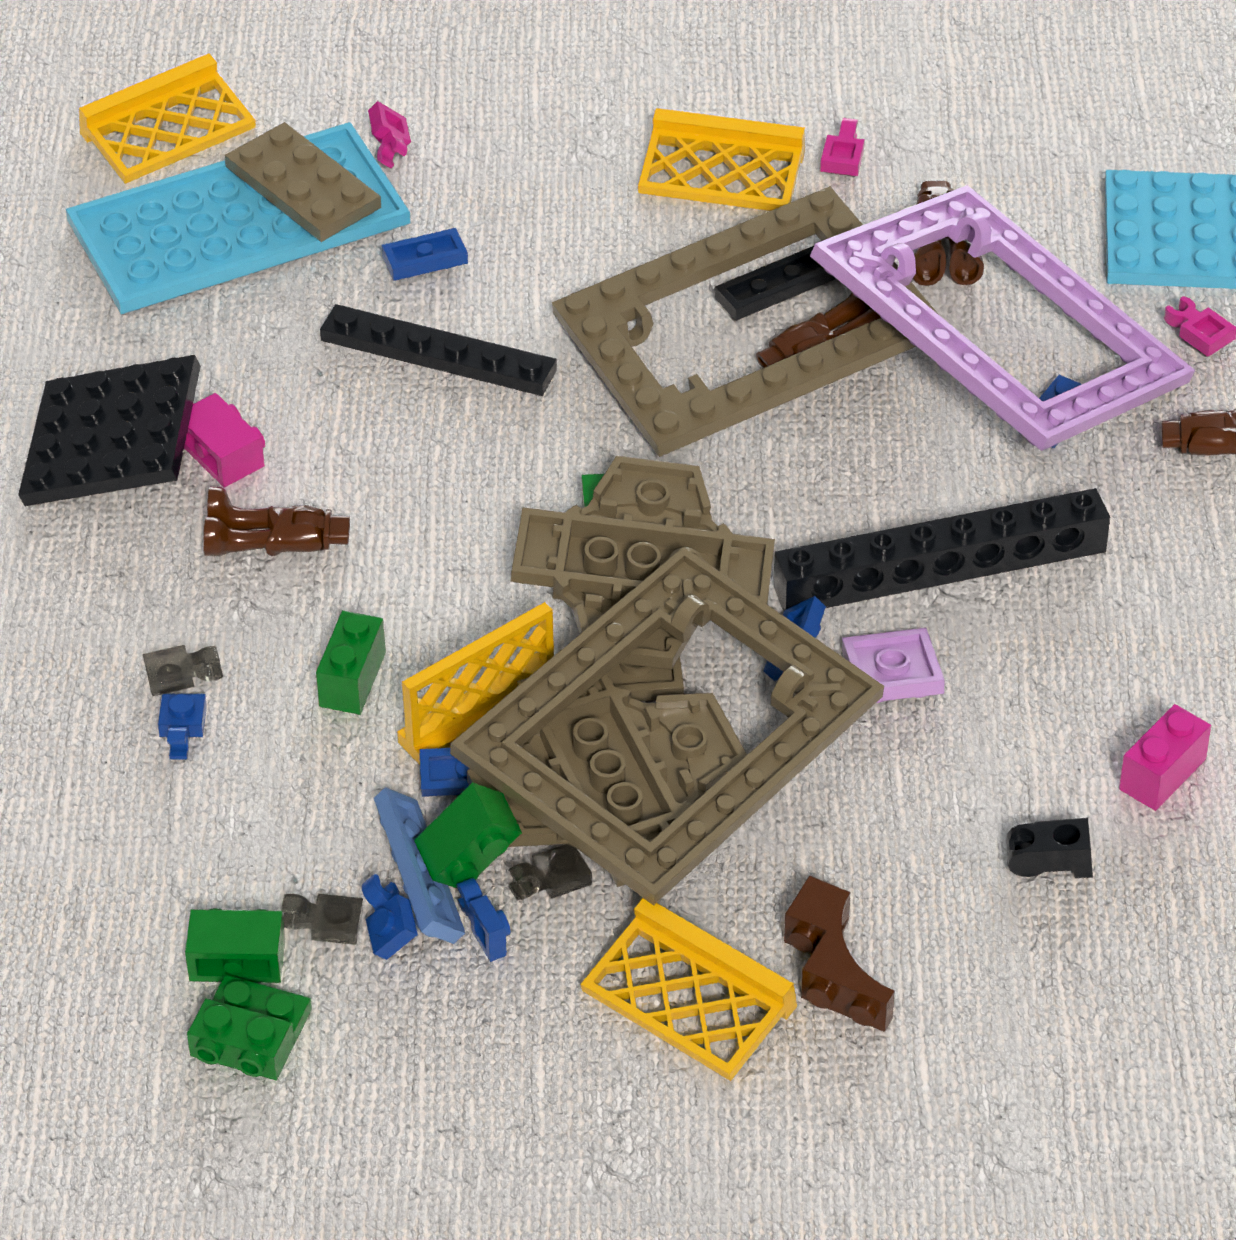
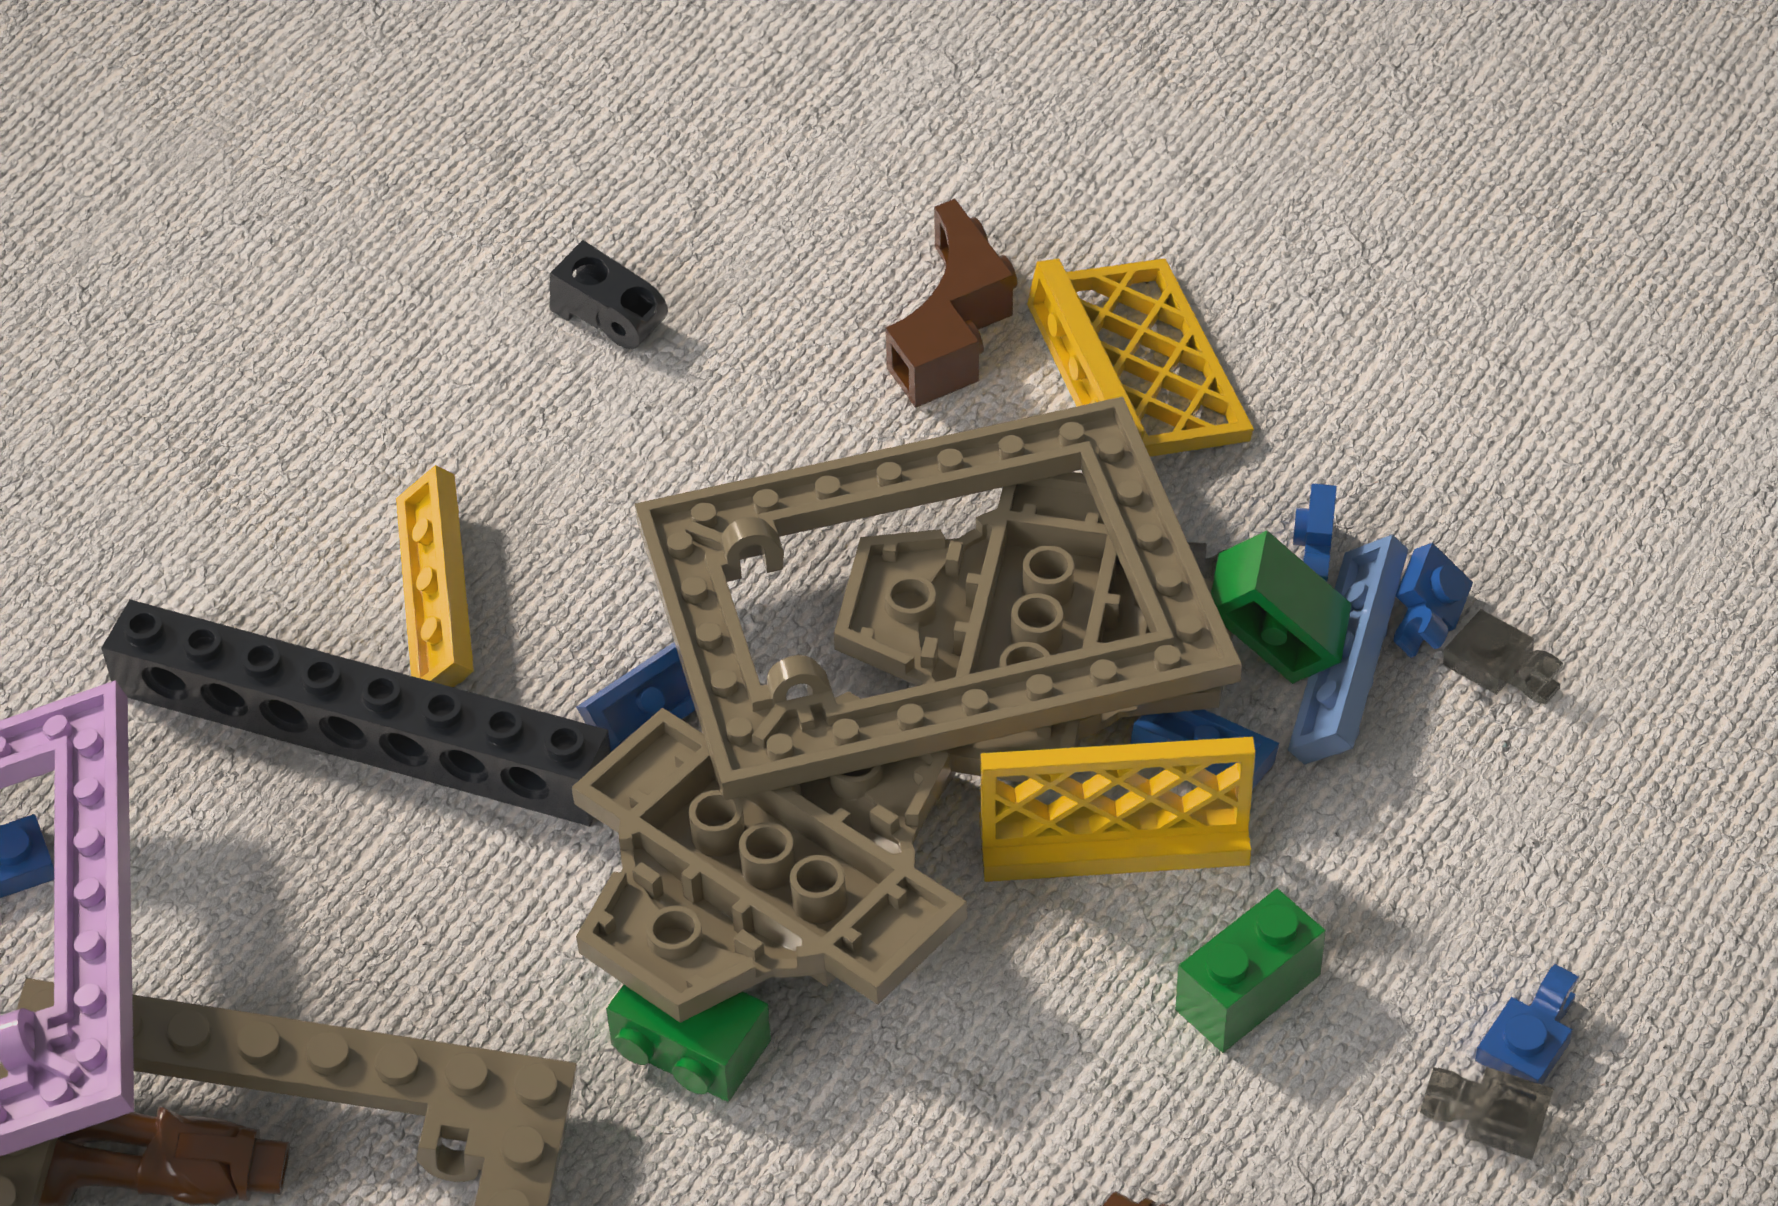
camera: 145 degrees left, 5 degrees up
(236, 945) = (1643, 660): green brick -> none
(248, 1027) = (1680, 568): green plate -> none
(899, 661) = (560, 611): lavender plate -> none
(986, 650) = (434, 579): none -> yellow plate
(1165, 757) = (380, 323): dark pink brick -> none

